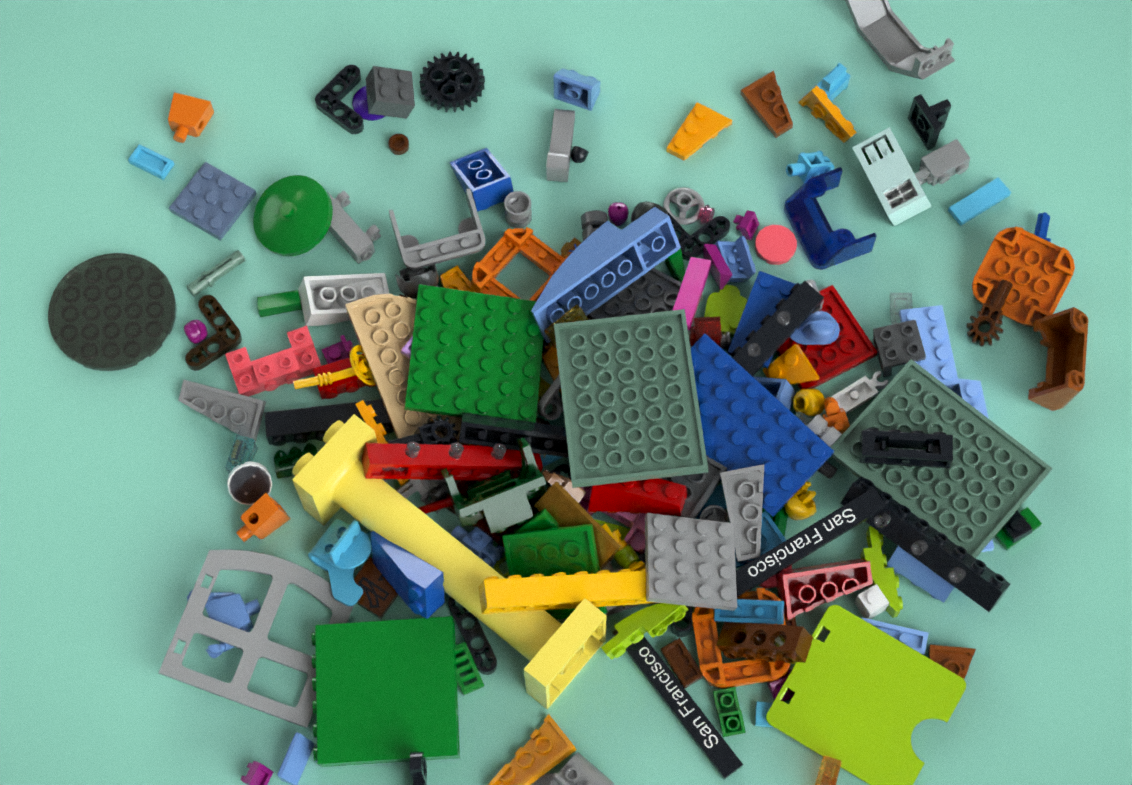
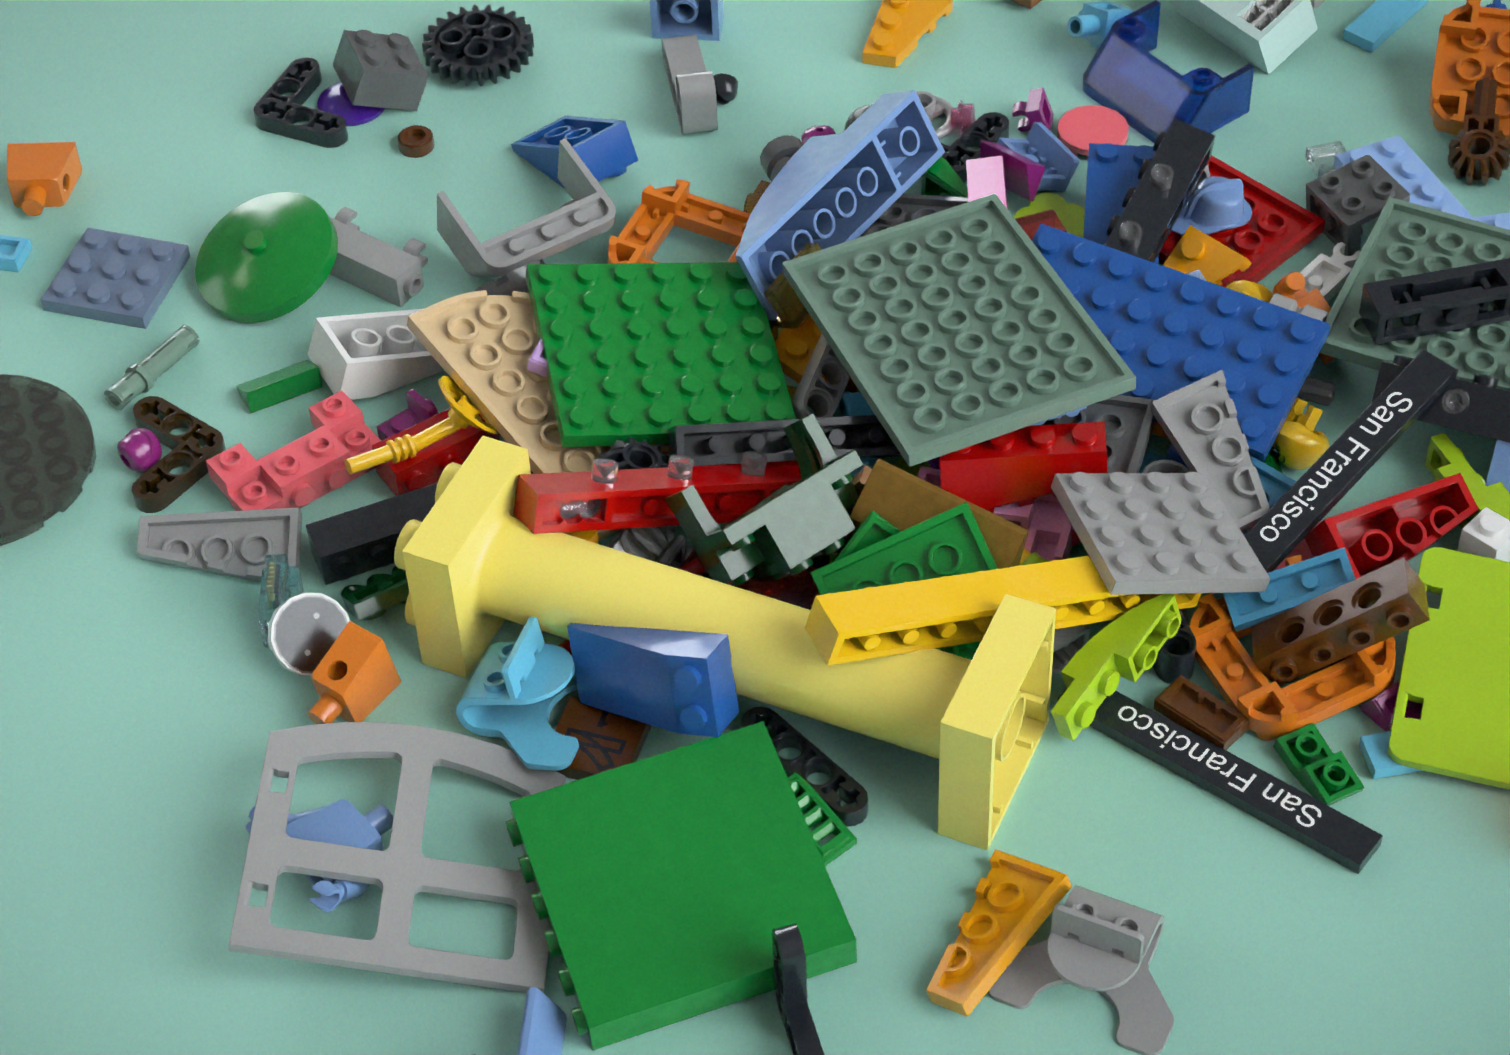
camera: 15 degrees left, 20 degrees down
(518, 209) = (650, 163): light grey wheel -> none

